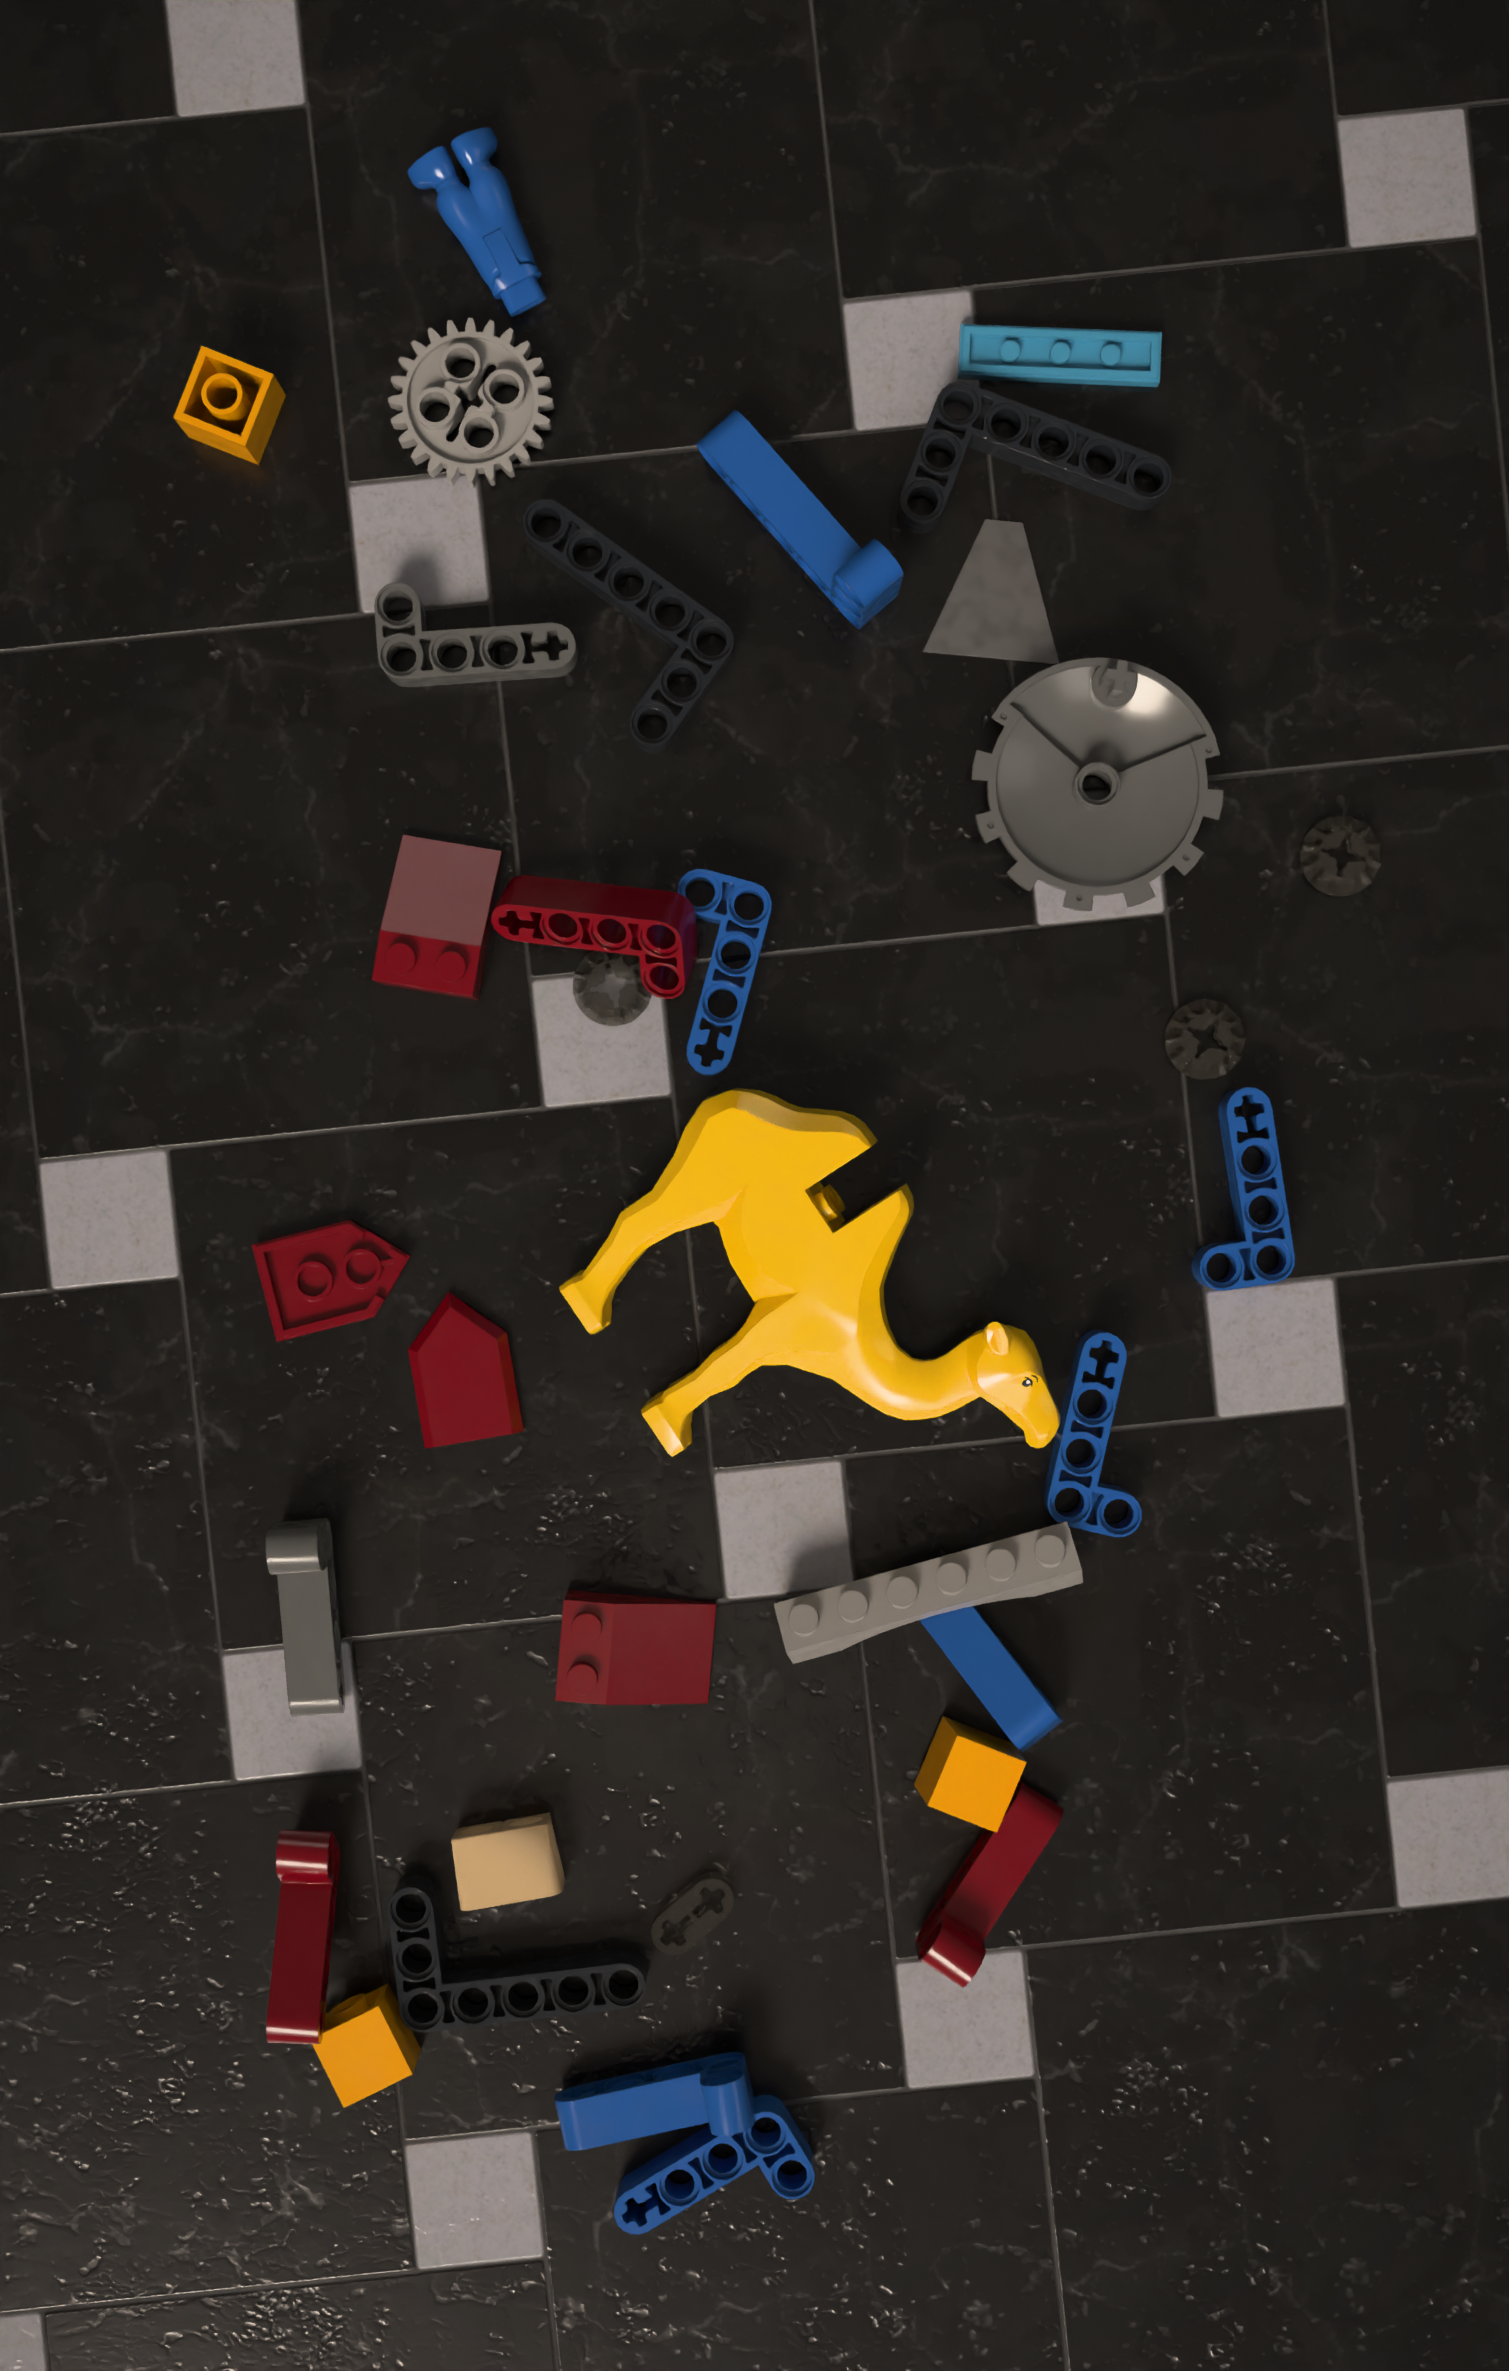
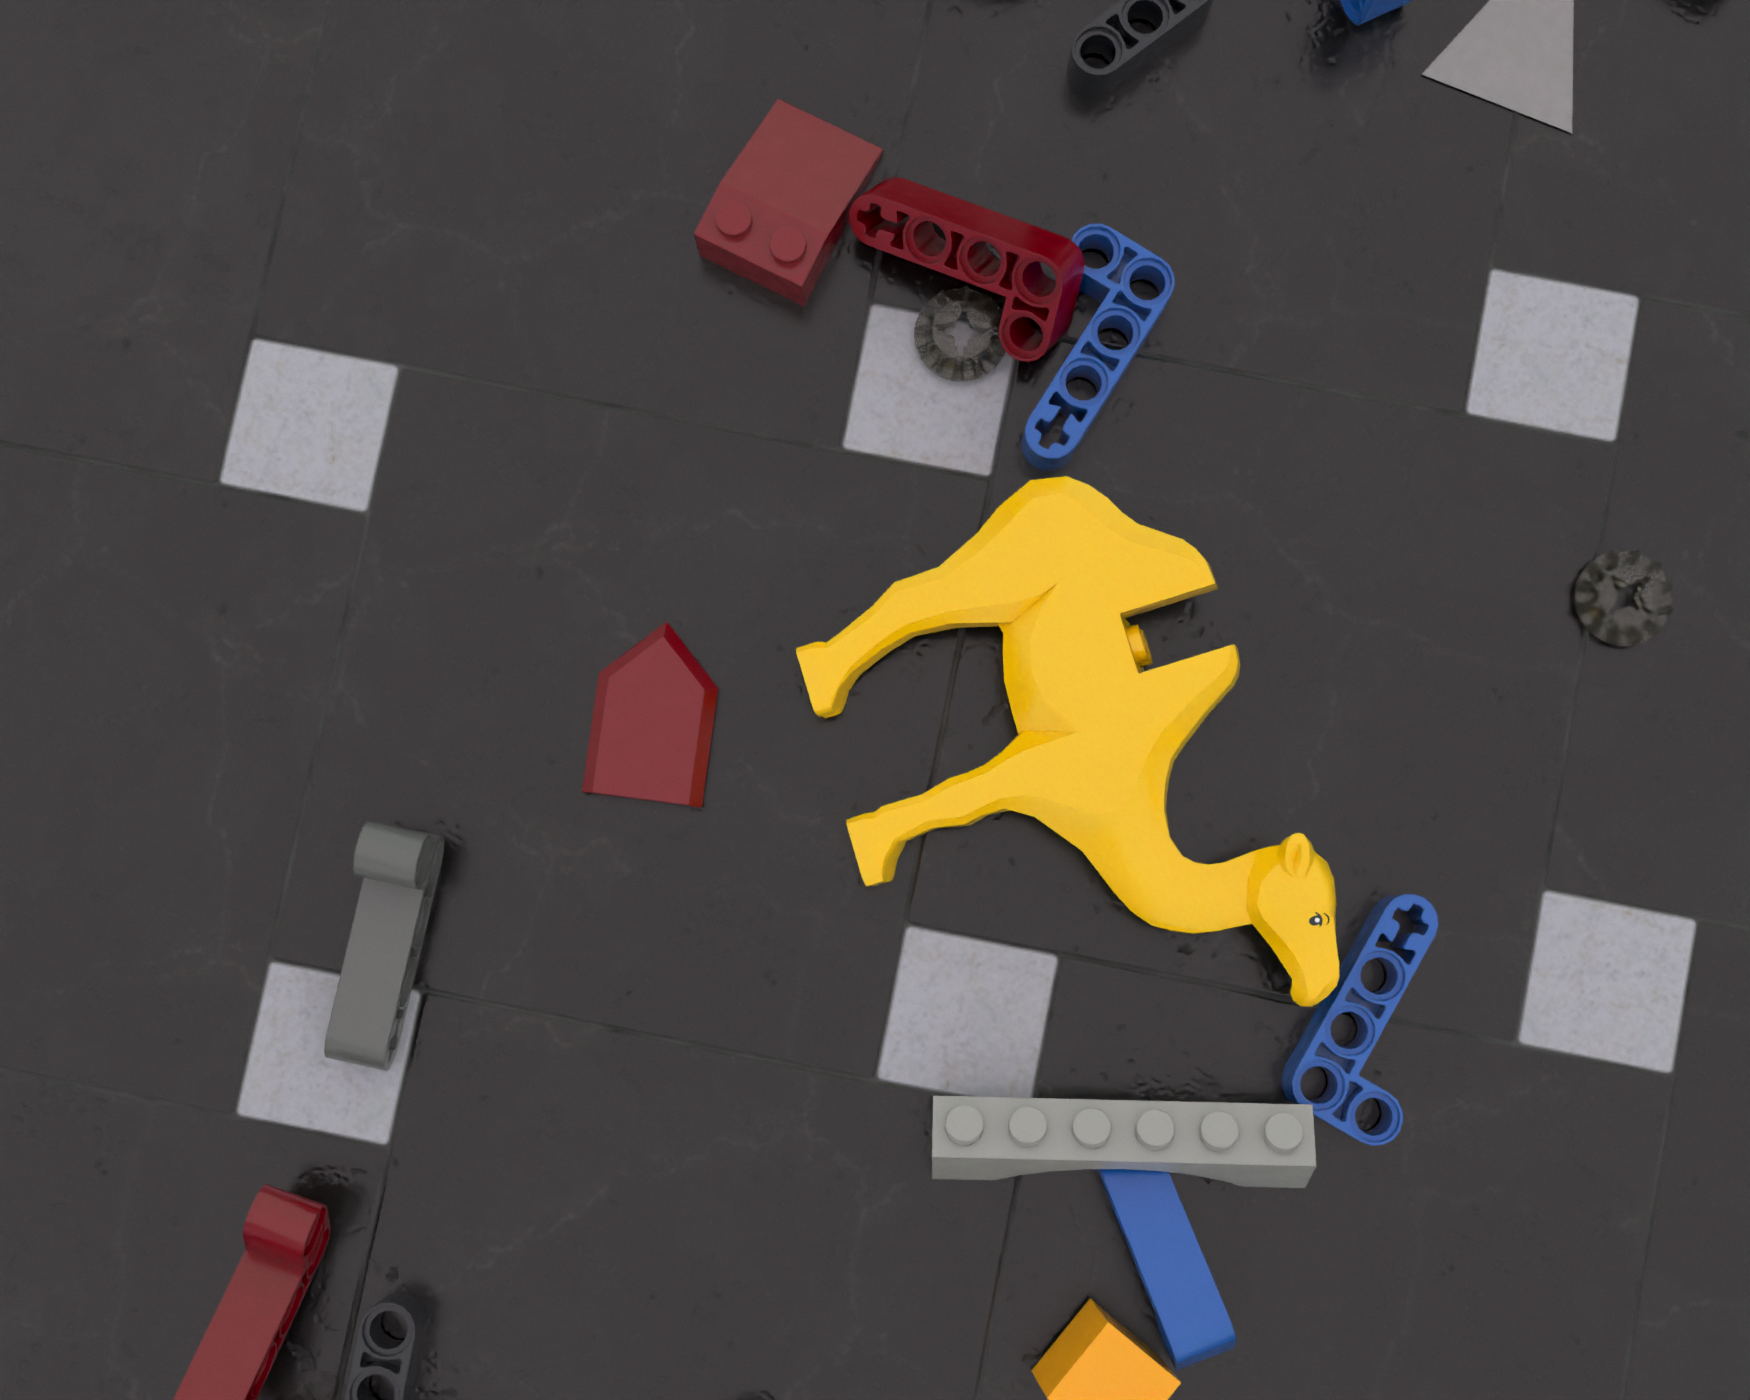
camera: 15 degrees right, 5 degrees down
(326, 1277) = (532, 561): dark red tile -> none
(507, 1862) = (520, 1311): tan piece -> none
(634, 1650) = (750, 1103): dark red slope -> none
(1108, 724) = (1623, 214): dark grey piece -> none
(1243, 1189) = (1624, 777): blue beam -> none

